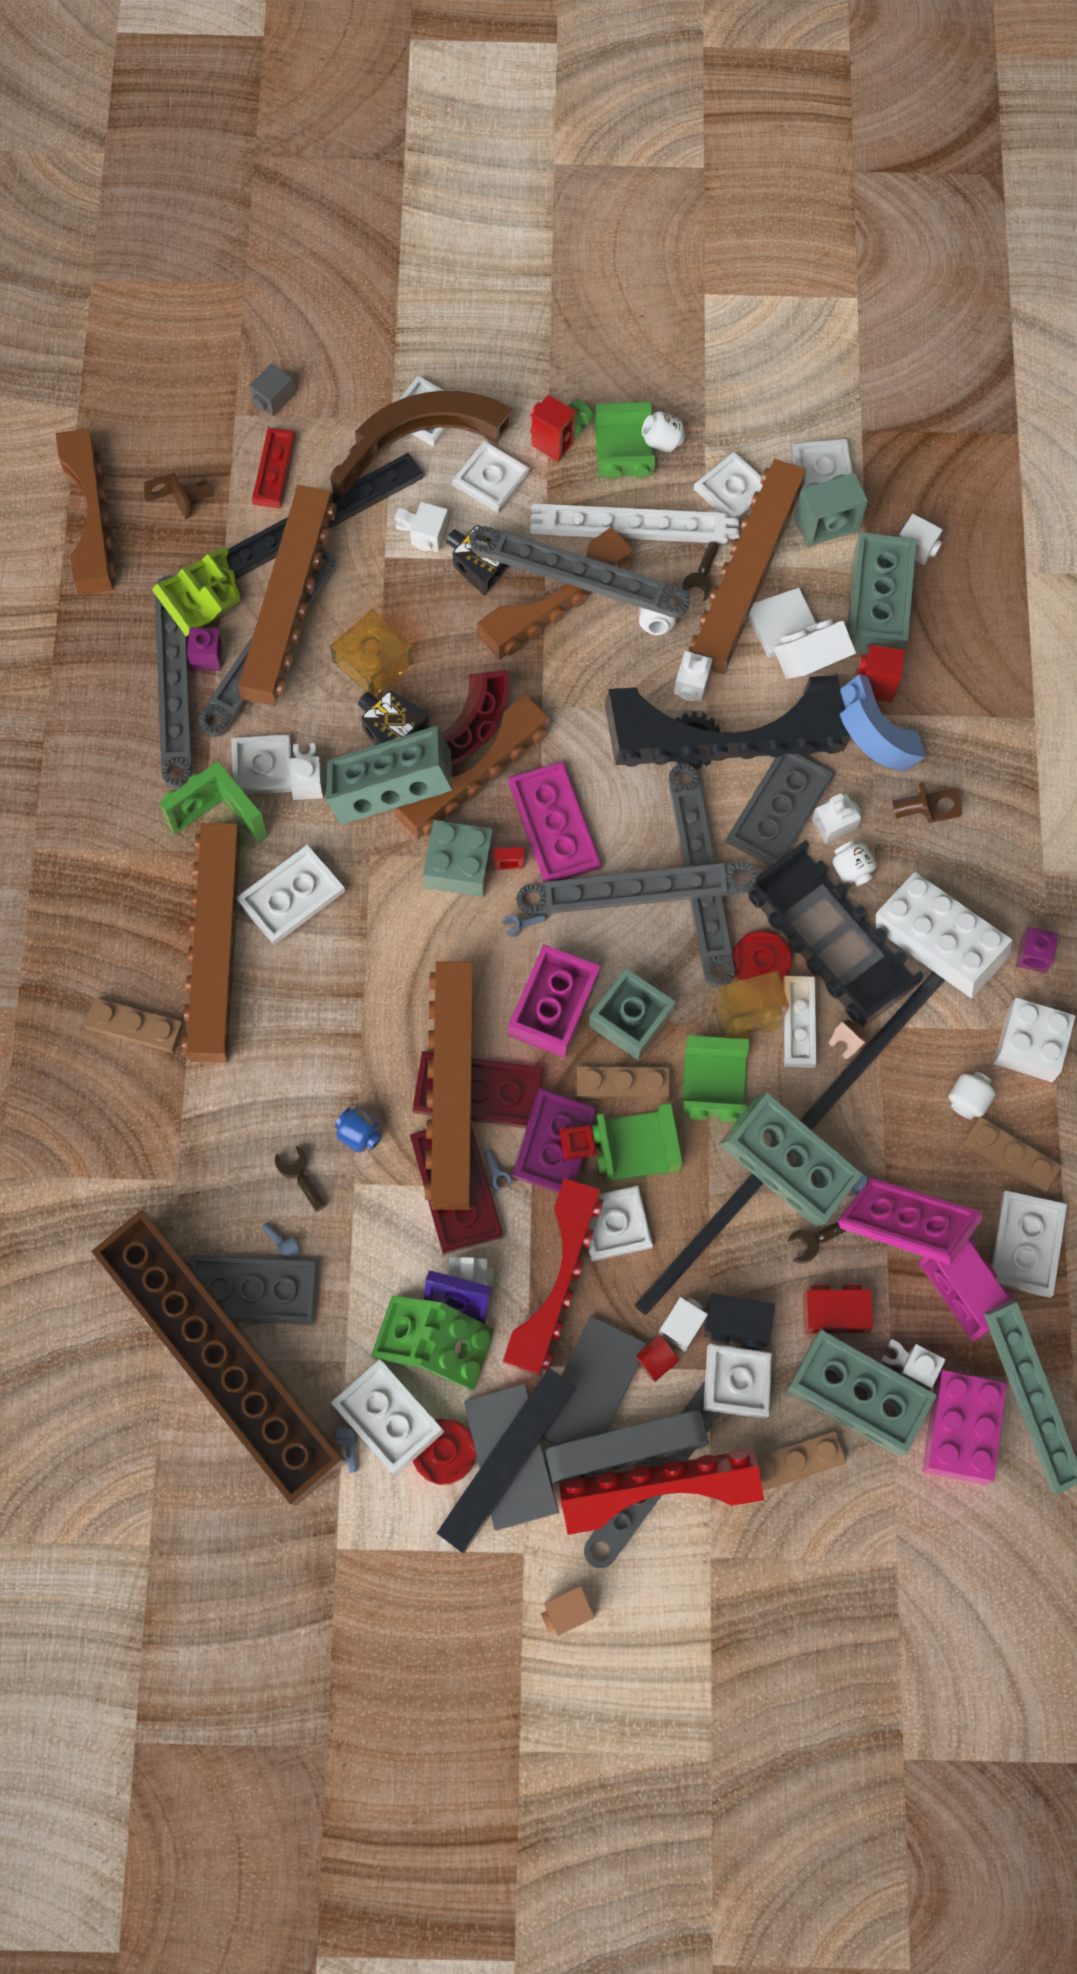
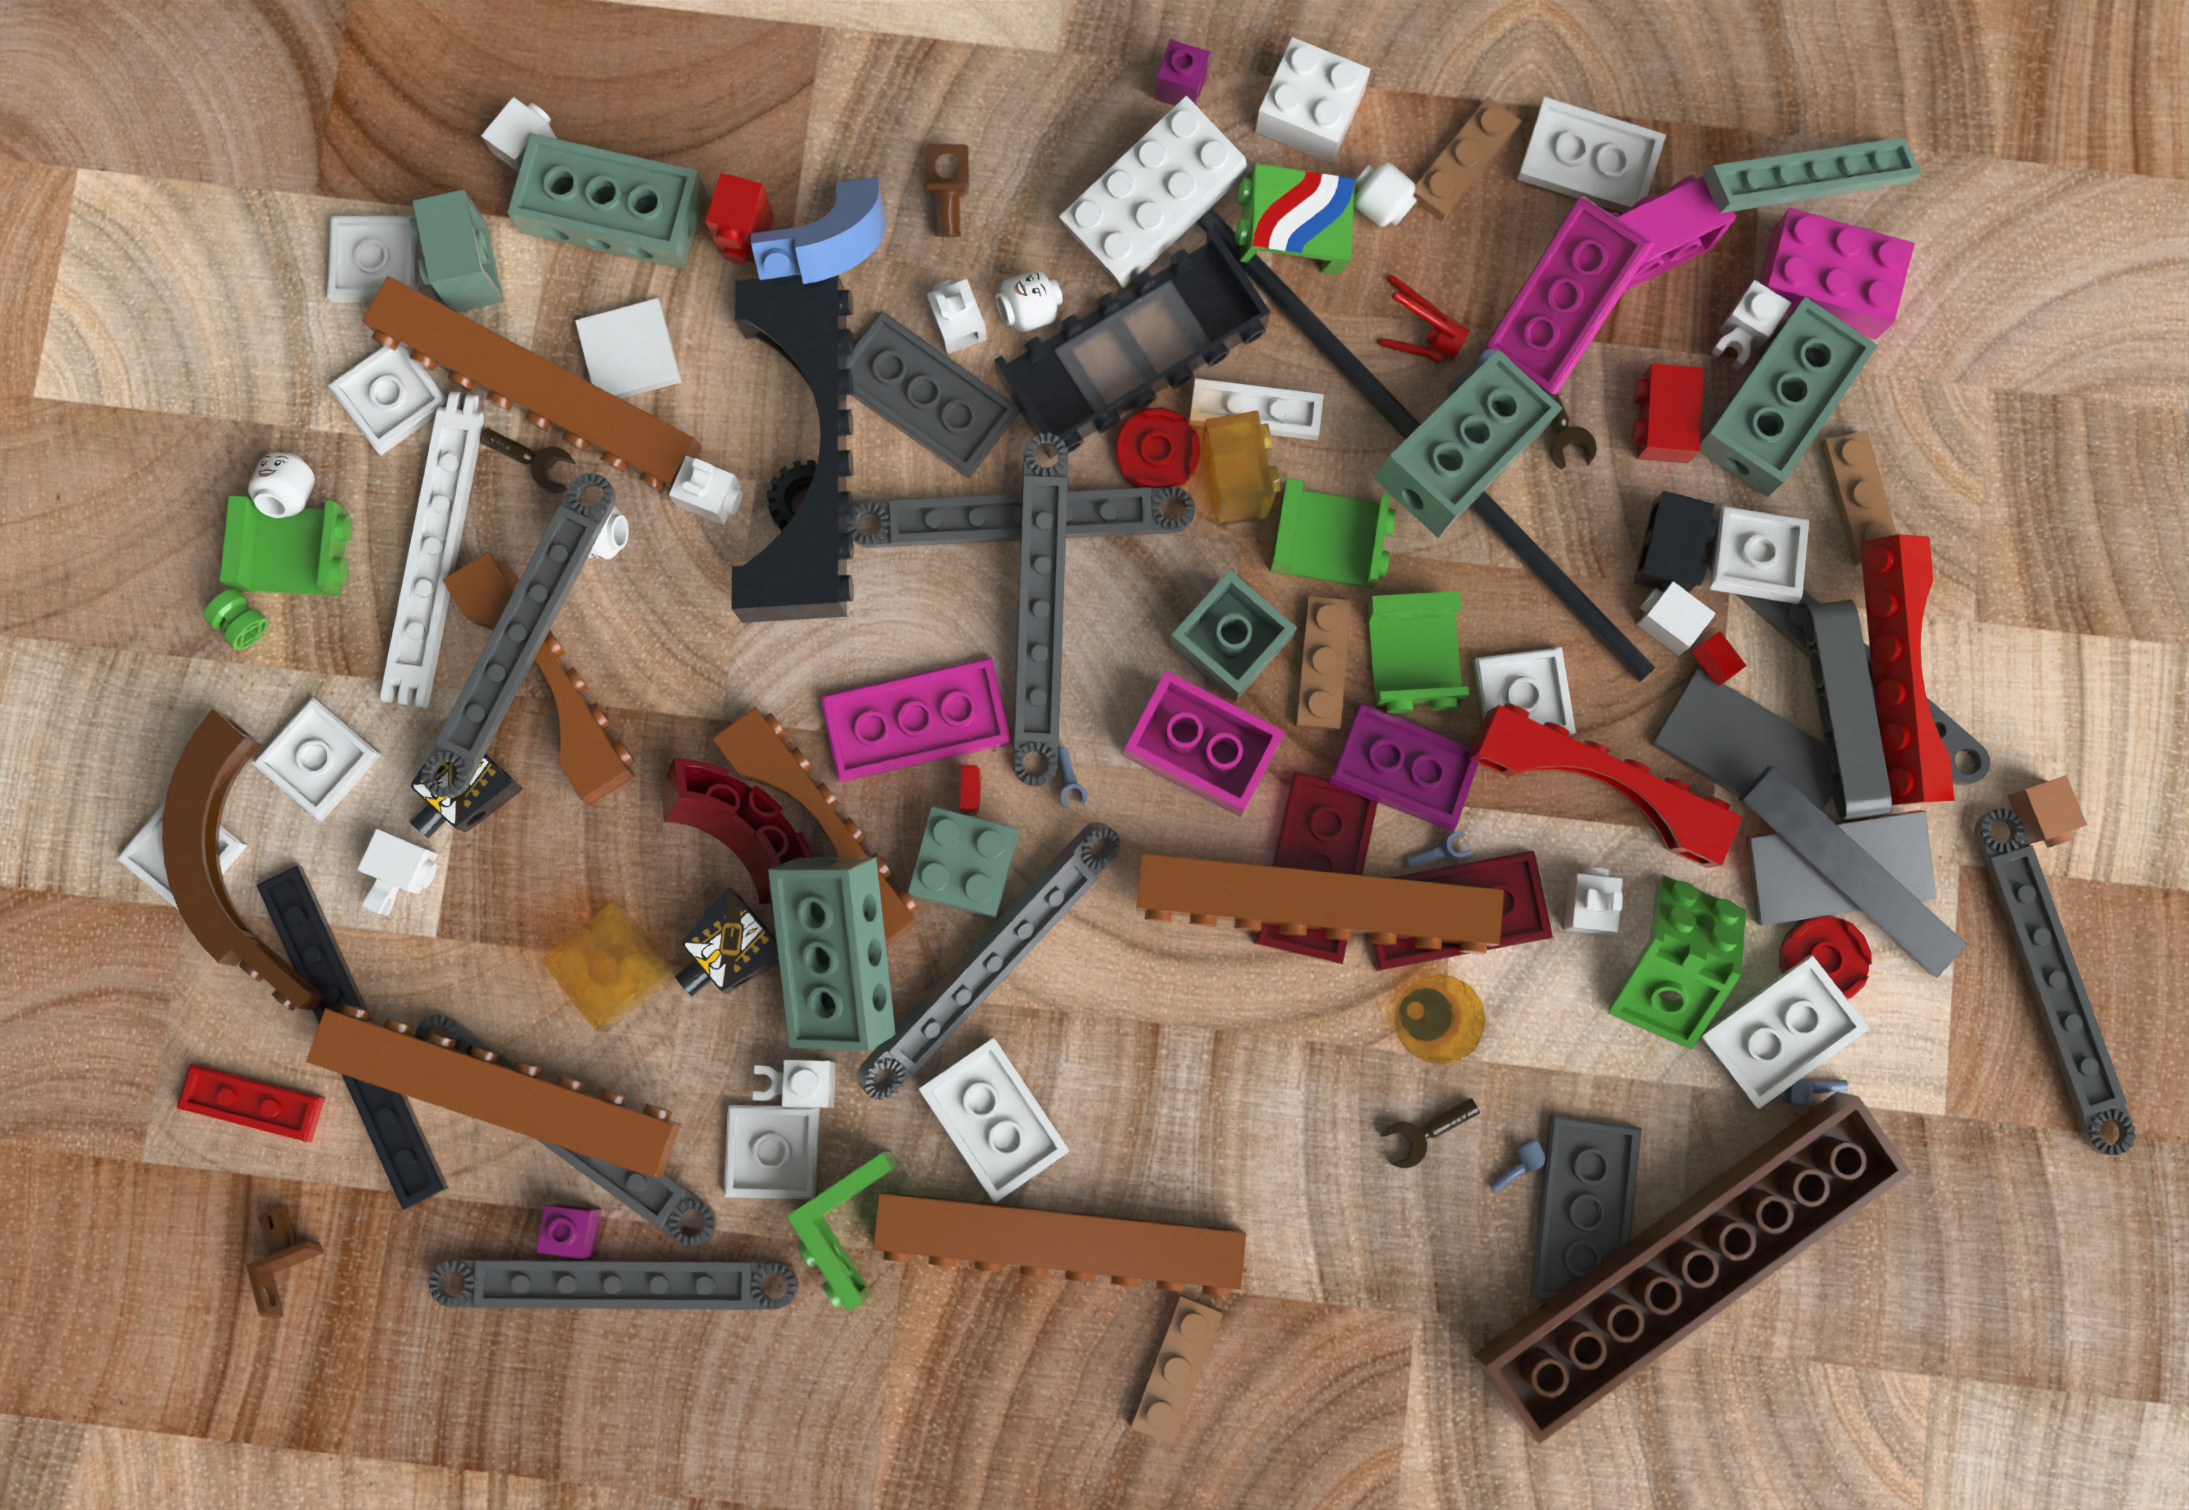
camera: 85 degrees left, 10 degrees up
(90, 558) = (383, 1411): dark orange arch -> none
(200, 591) = (468, 1233): lime slope -> none
(272, 390) = (108, 1097): dark grey brick -> none
(358, 1129) = (1367, 1042): blue head -> none
(379, 1180) = (1440, 1019): none -> clear yellow tile
(397, 882) = (989, 961): none -> dark grey plate
(440, 1623) = (2055, 982): none -> dark grey plate
(459, 1294) = (1631, 919): dark purple tile -> none
(552, 427) = (252, 652): red brick -> none
(577, 1142) = (1413, 732): red tile -> none
(812, 650) = (692, 306): white brick -> none
(852, 1036) = (1283, 341): tile -> none
(872, 1147) = (1445, 334): none -> red plant
(943, 1033) = (1296, 215): none -> panel

